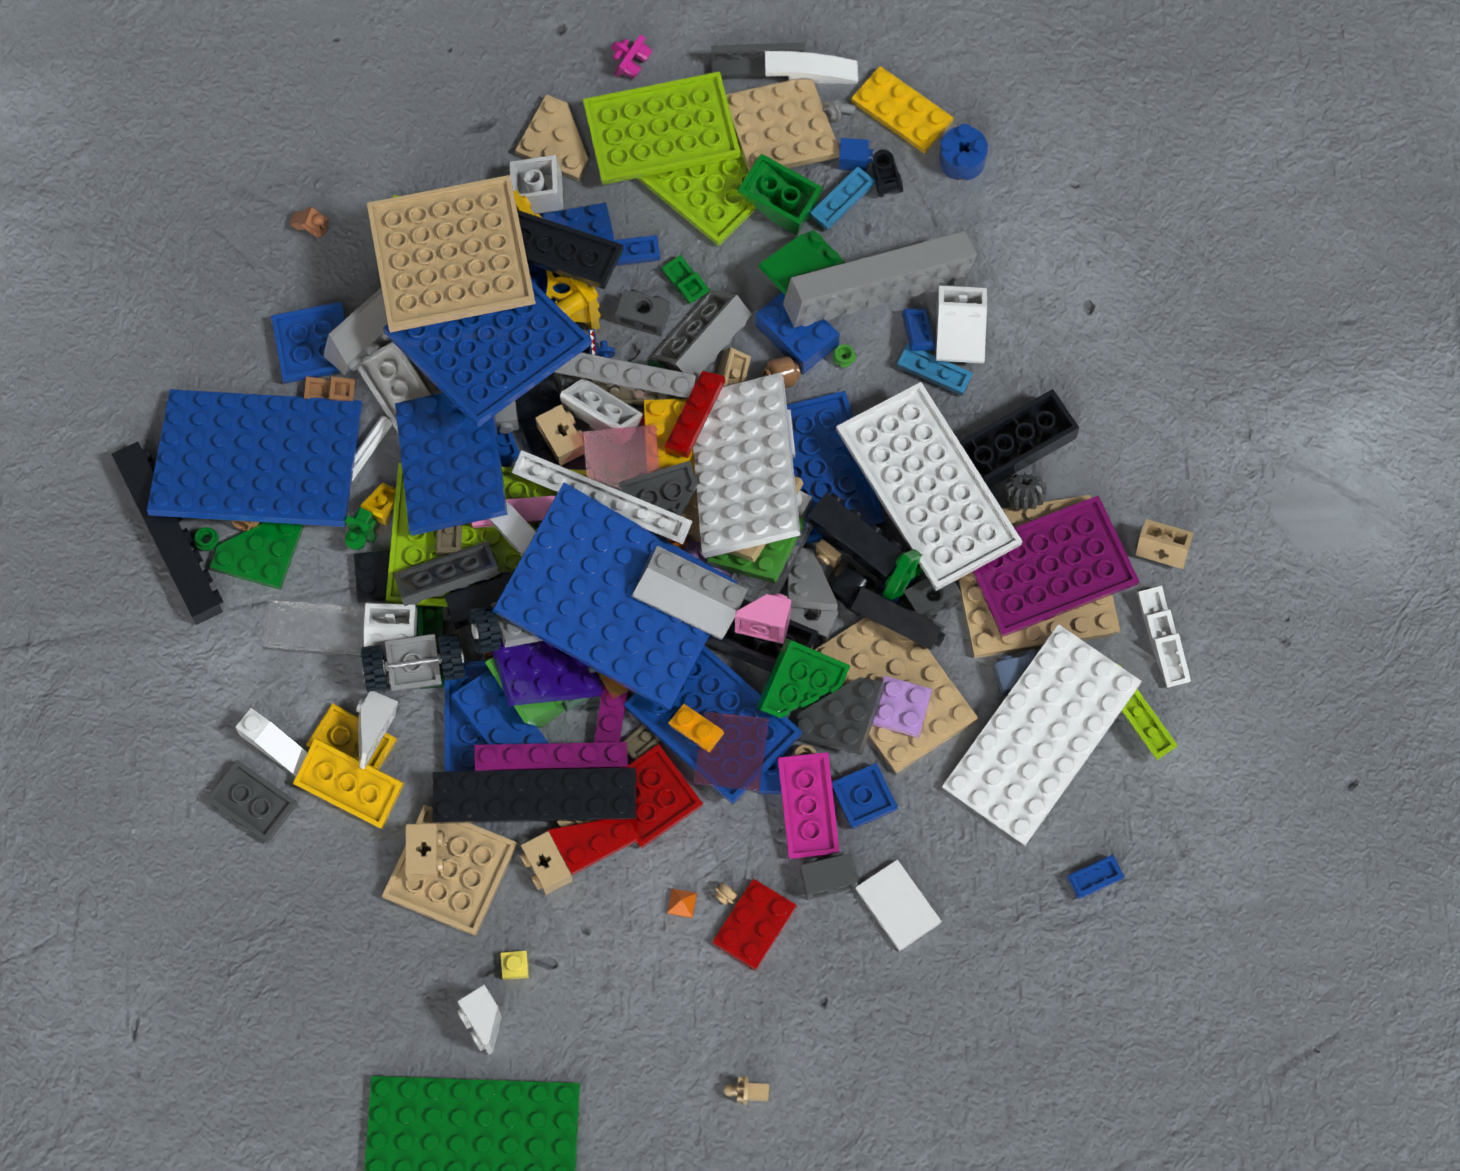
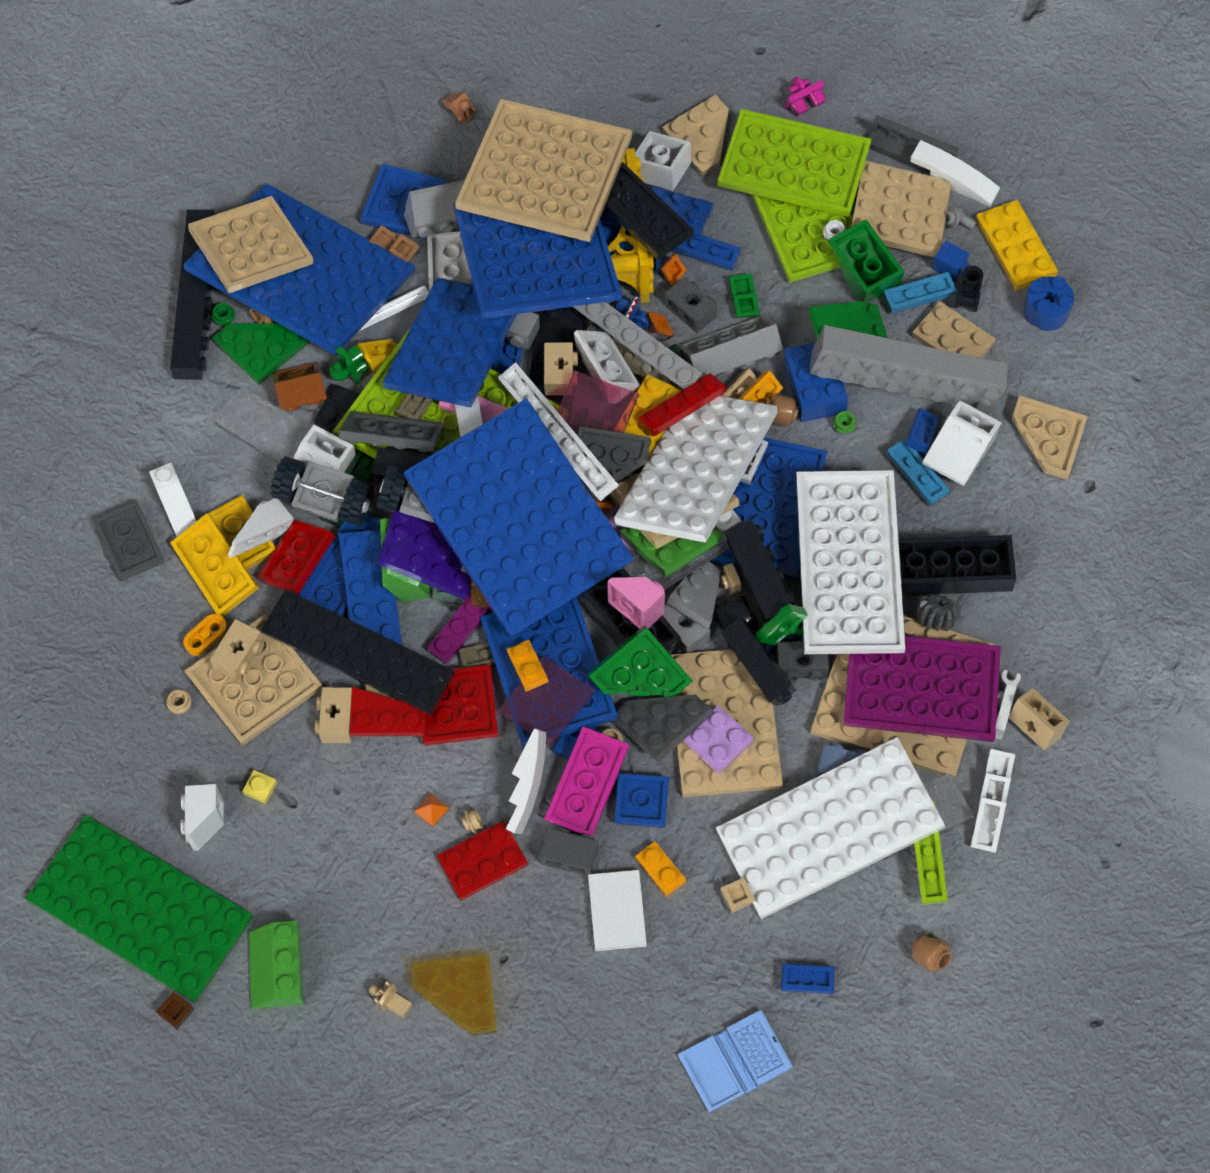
camera: 30 degrees right, 5 degrees down
(200, 459) = (250, 244): none -> tan plate
(323, 571) = (299, 386): none -> dark orange slope
(379, 853) = (203, 634): none -> light orange plate
(392, 919) = (177, 695): none -> tan plate
(421, 736) = (296, 556): none -> red plate
(550, 756) = (390, 626): magenta plate -> none
(609, 292) = (673, 269): none -> orange slope
(623, 345) = (659, 325): none -> orange slope
(628, 1117) = (276, 965): none -> bright green slope
(689, 592) = (581, 543): light grey slope -> none
(734, 171) = (833, 226): none -> white plate
(753, 362) = (762, 388): none -> light orange plate
(755, 823) = (529, 770): none -> white slope
(804, 1050) = (459, 990): none -> clear yellow plate
(893, 224) = (952, 332): none -> tan plate
(914, 848) = (660, 869): none -> light orange plate
(994, 836) = (737, 895): none -> tan plate
(1031, 276) = (1050, 434): none -> tan plate
(1074, 981) = (735, 1061): none -> light blue piece
(1128, 541) = (1005, 702): none -> white plate
(1186, 798) = (931, 952): none -> medium nougat head

